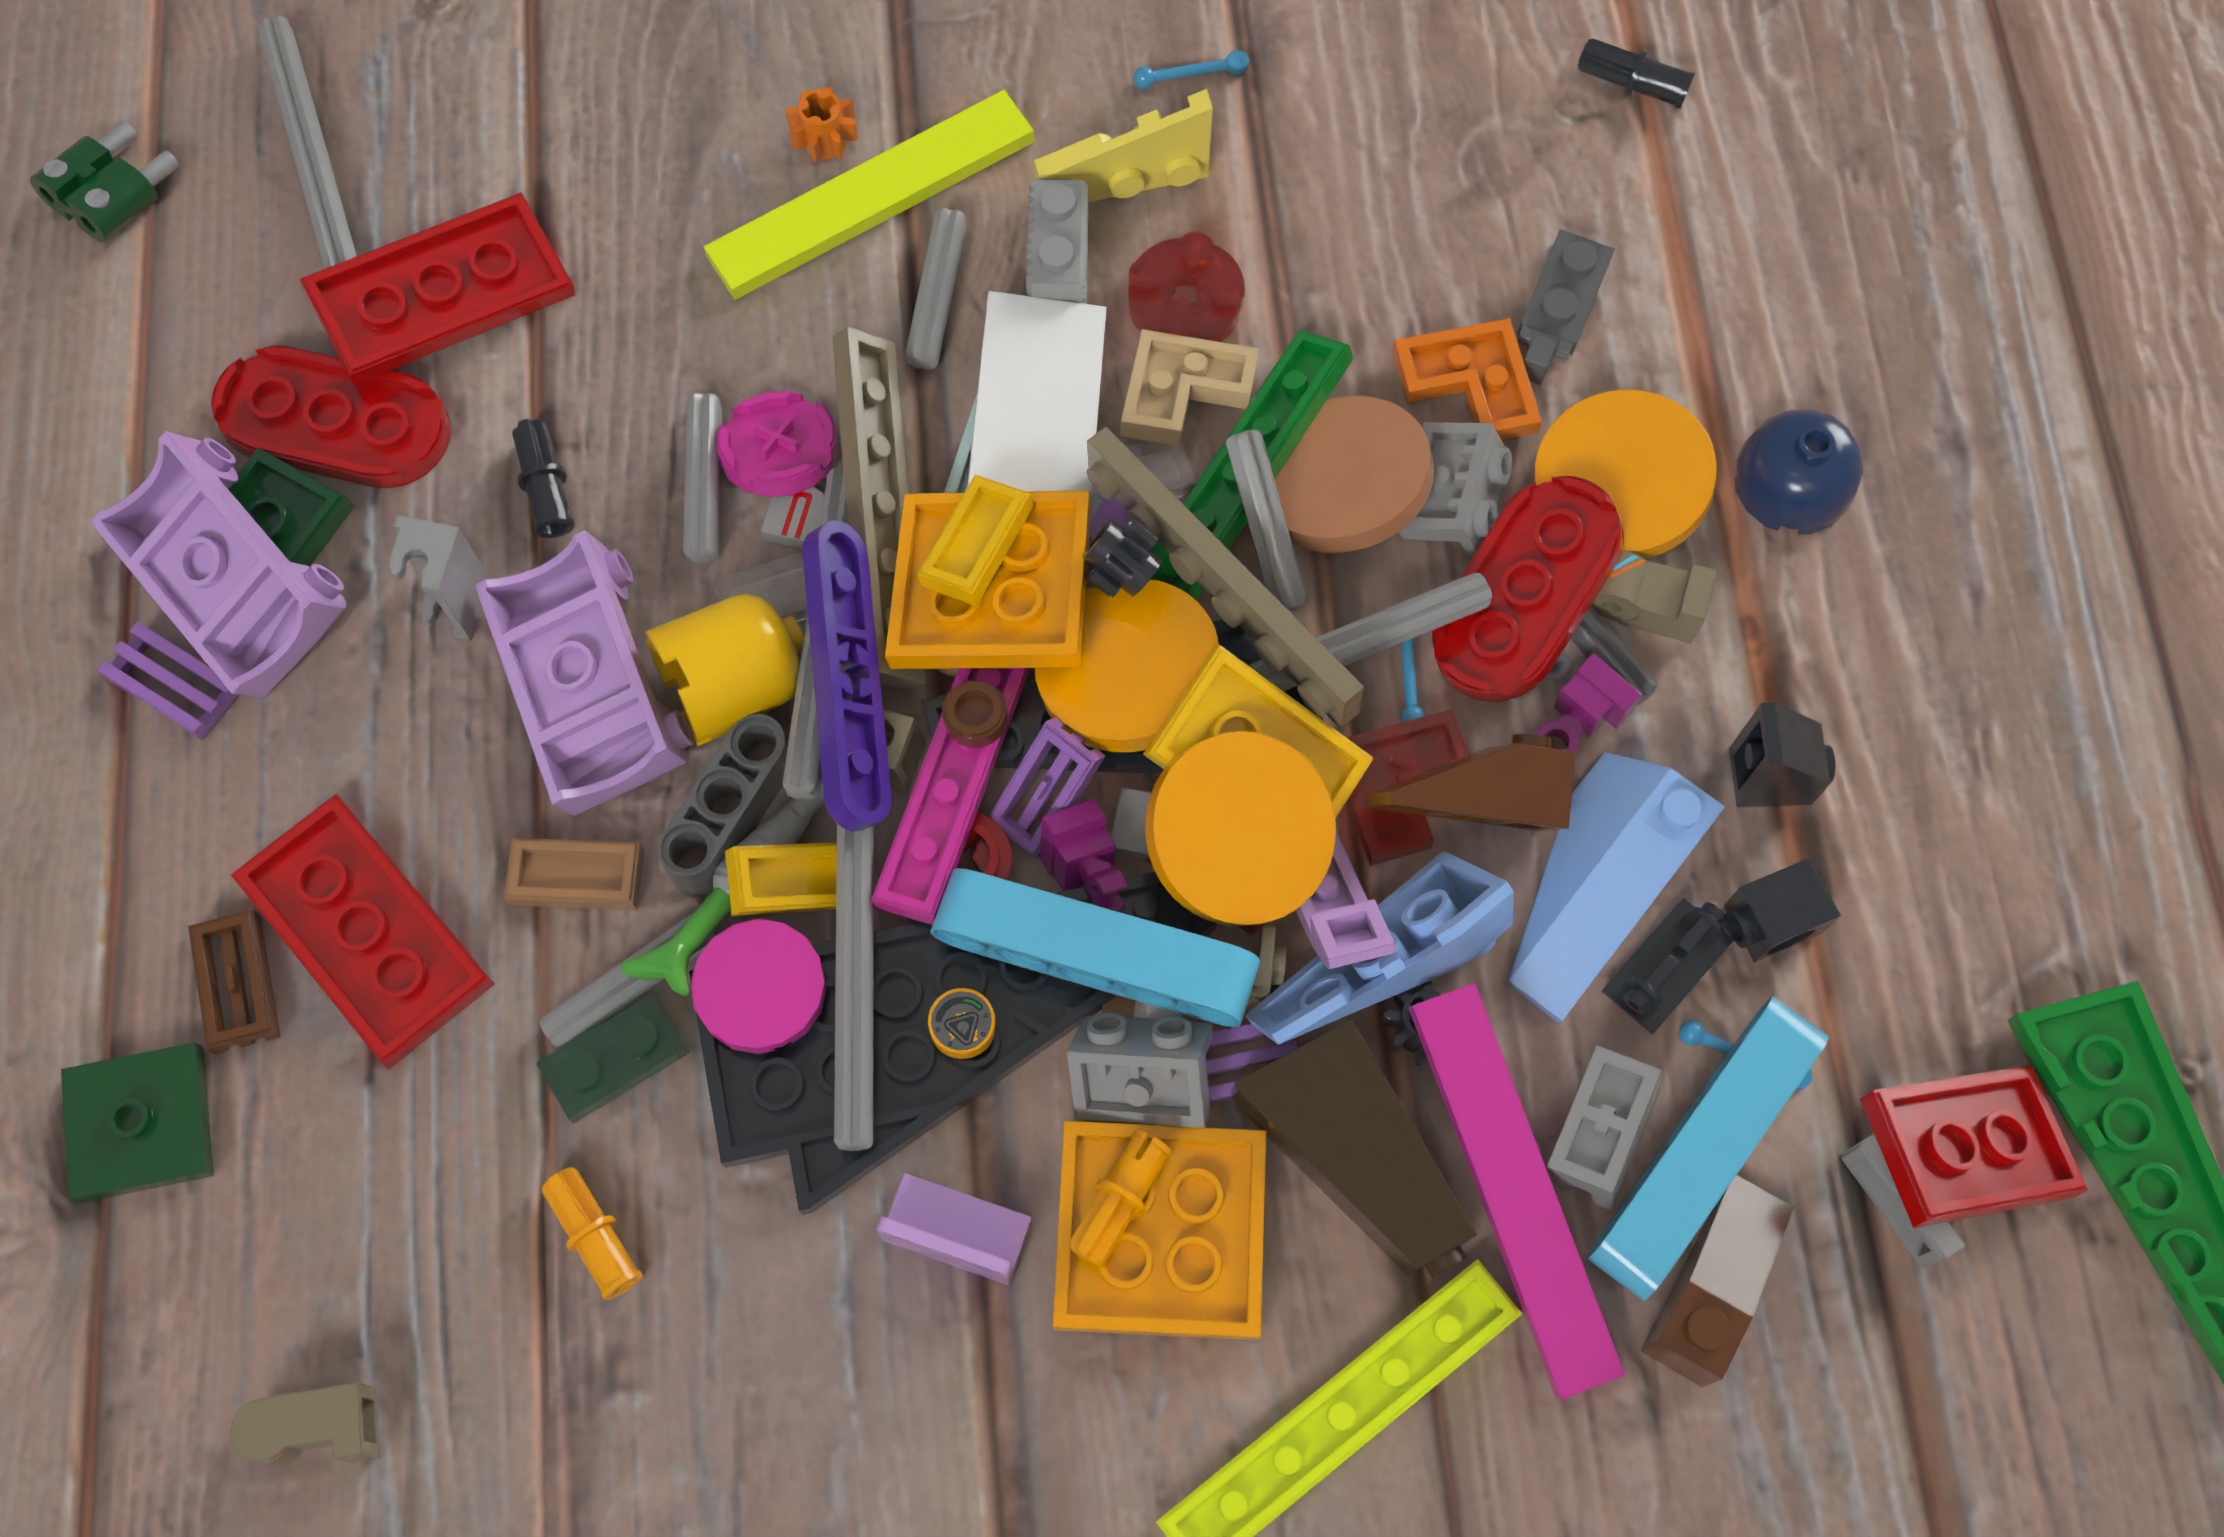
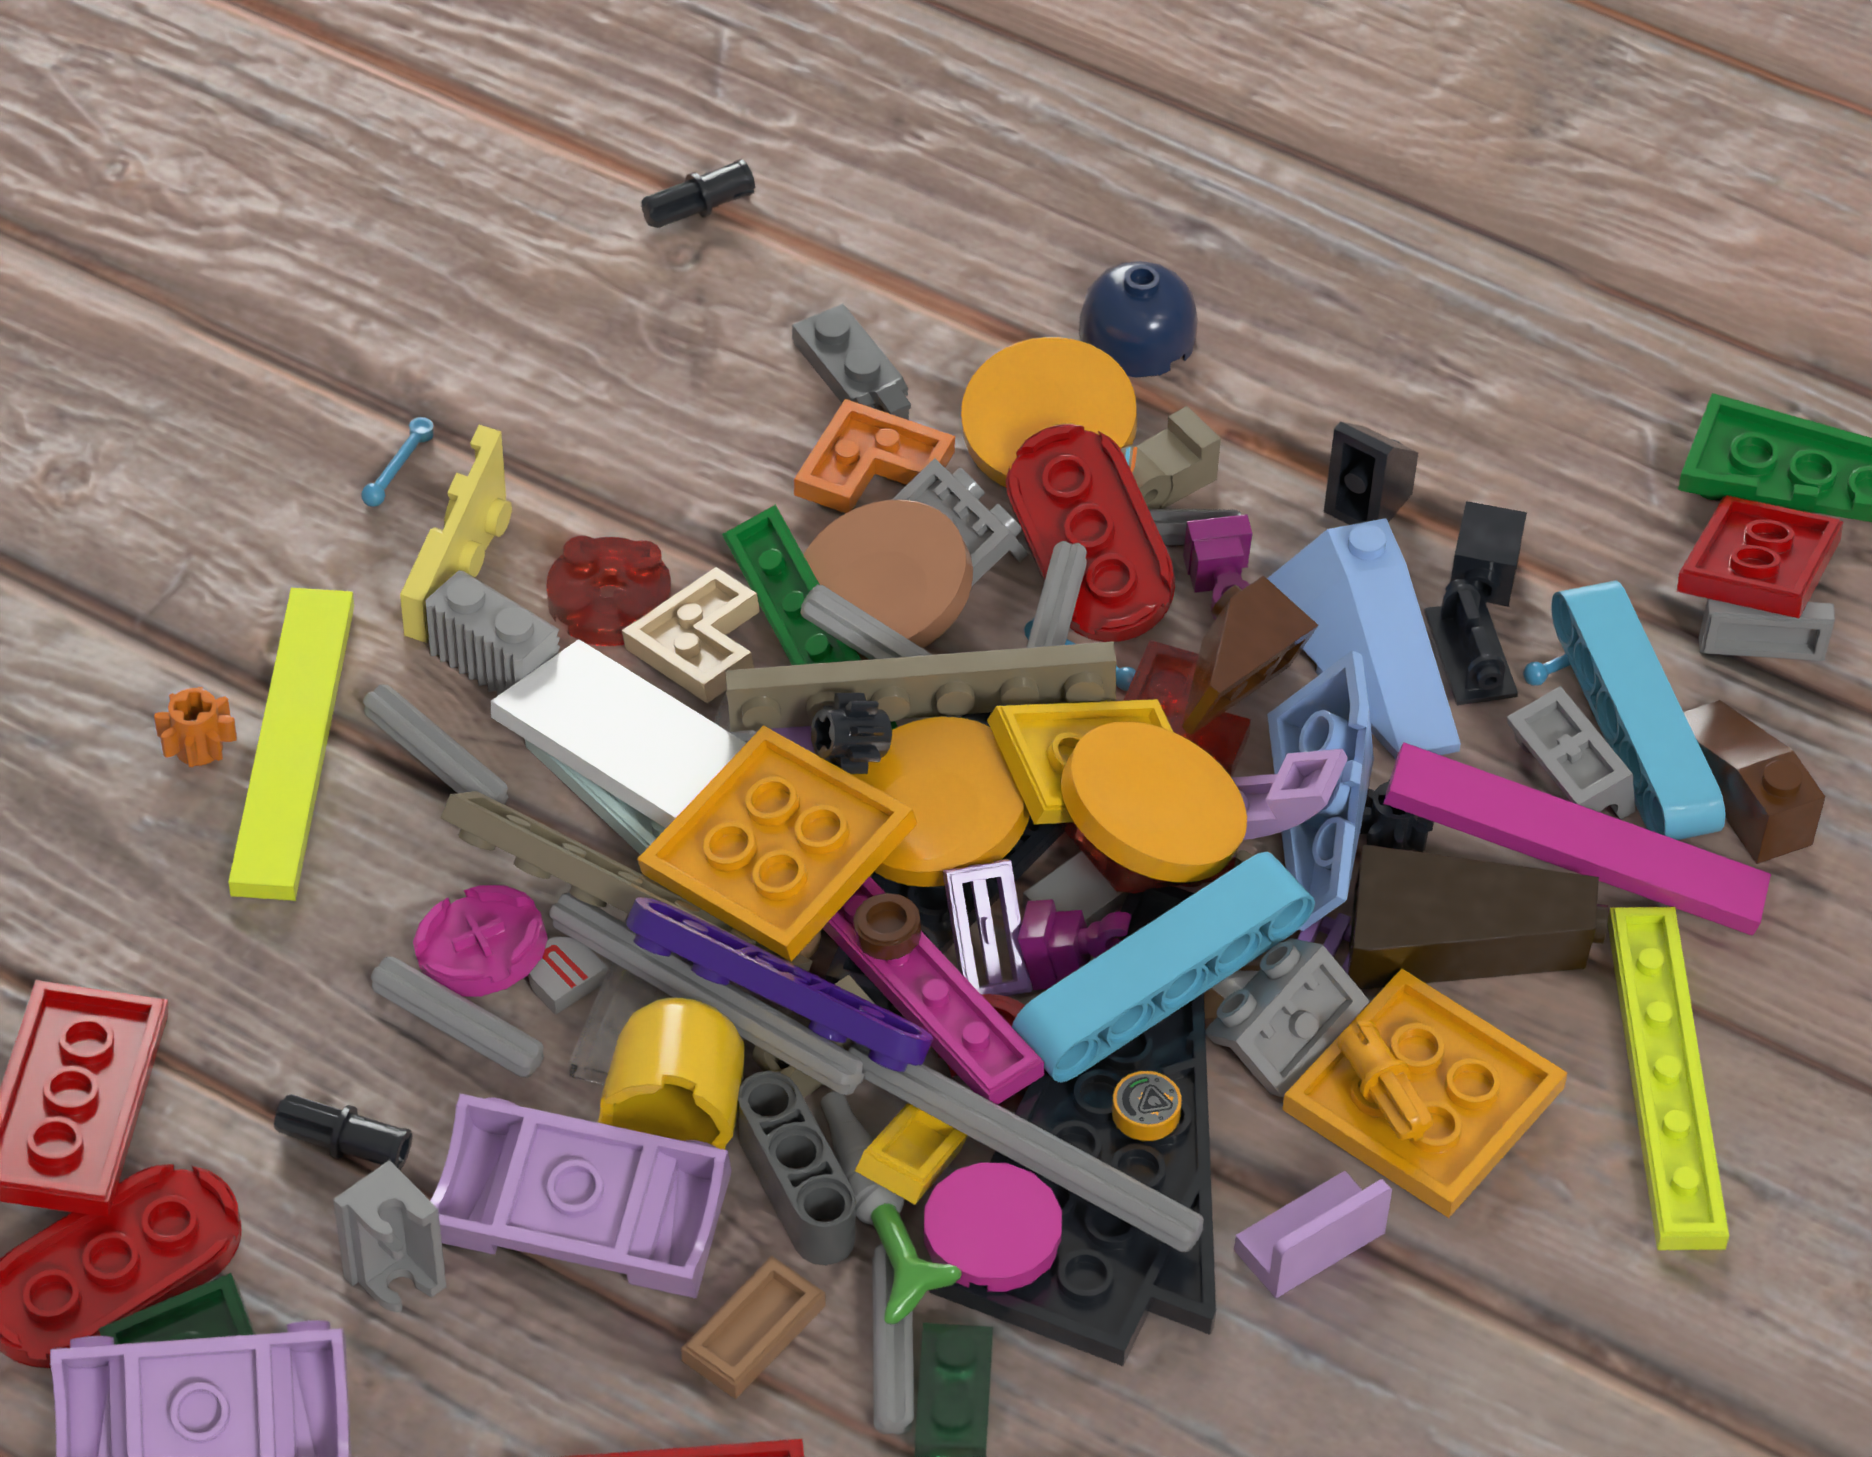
camera: 55 degrees left, 20 degrees down
(975, 540) = (739, 822): yellow tile -> none

